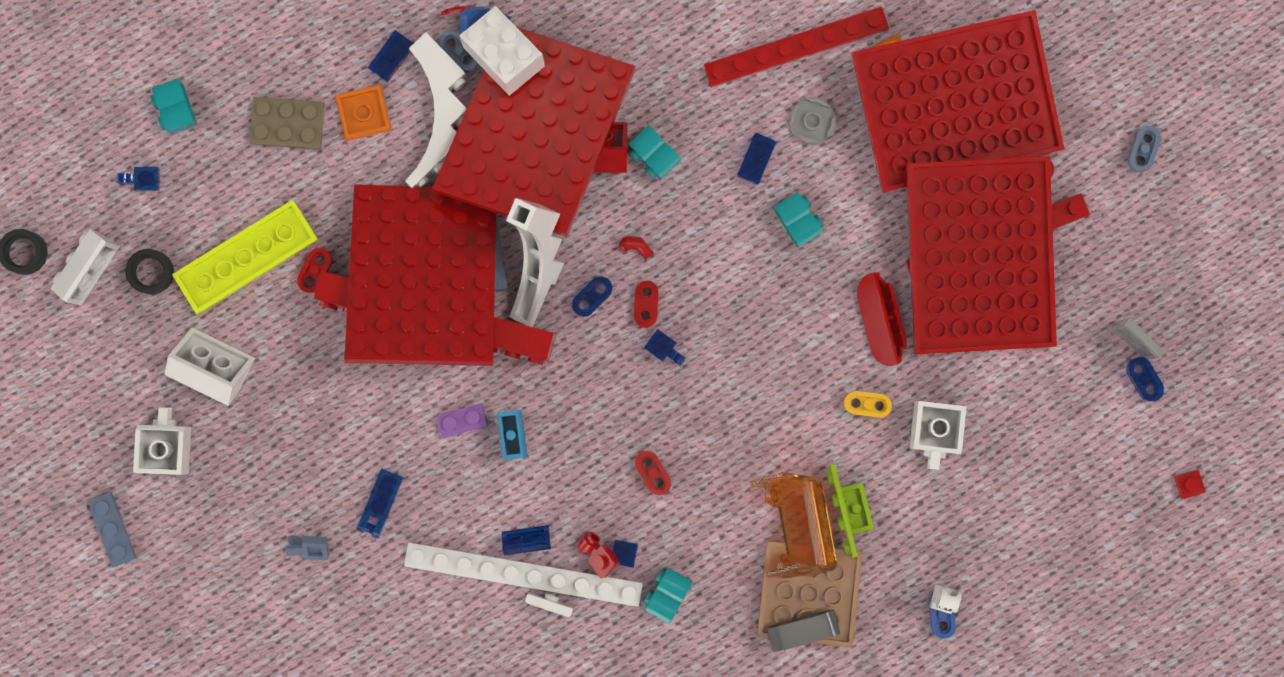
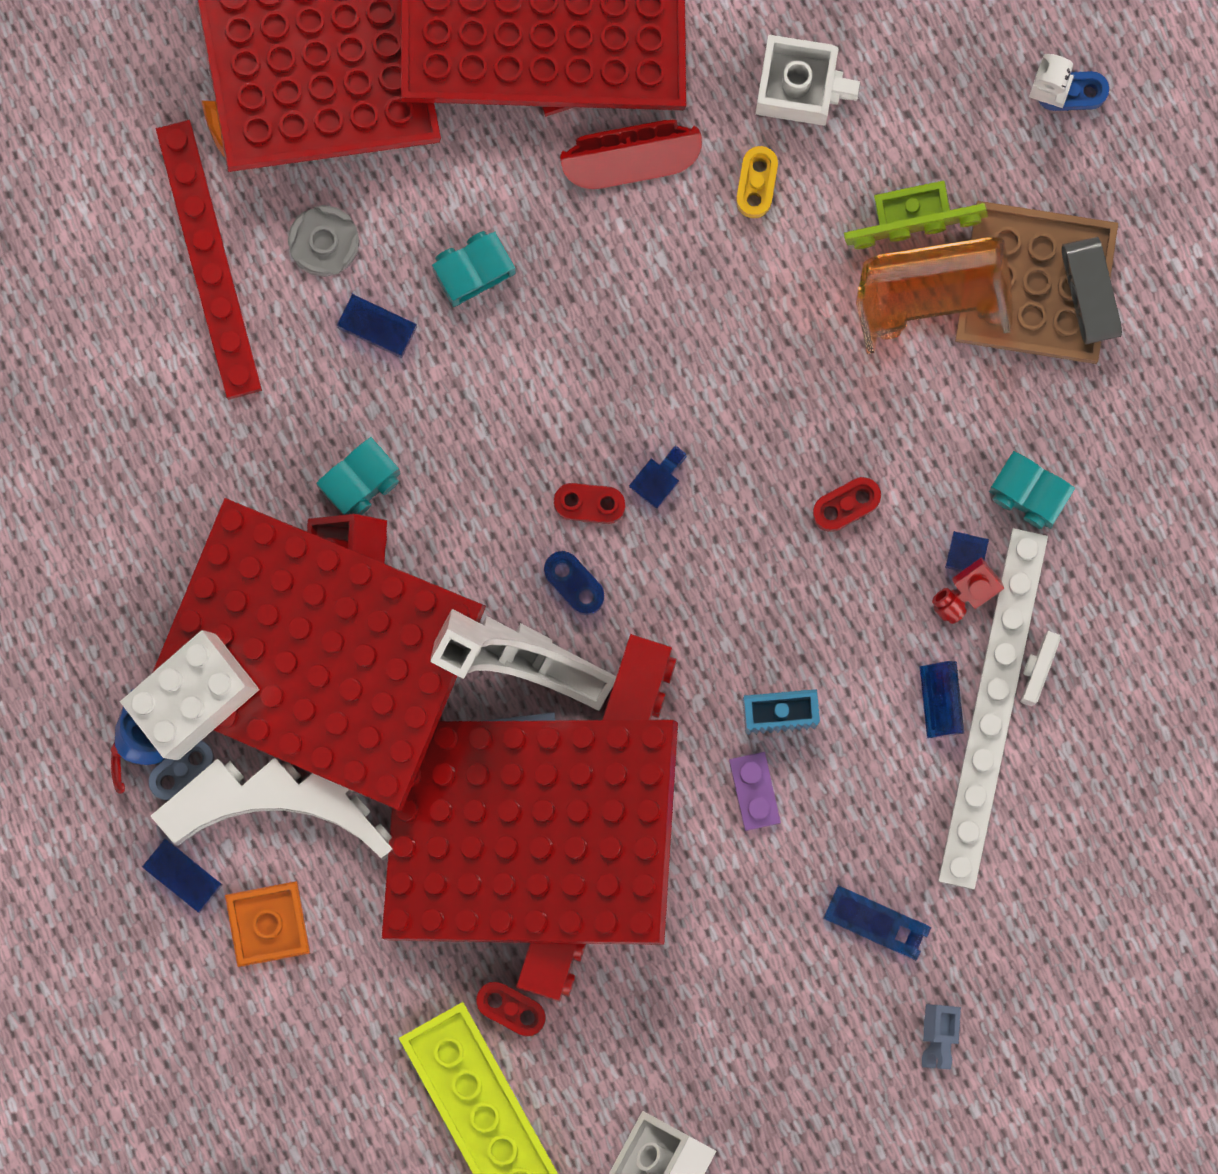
camera: 90 degrees left, 5 degrees down
(287, 123) = (276, 1044): dark tan plate -> none
(635, 243) = (496, 513): red arm -> none

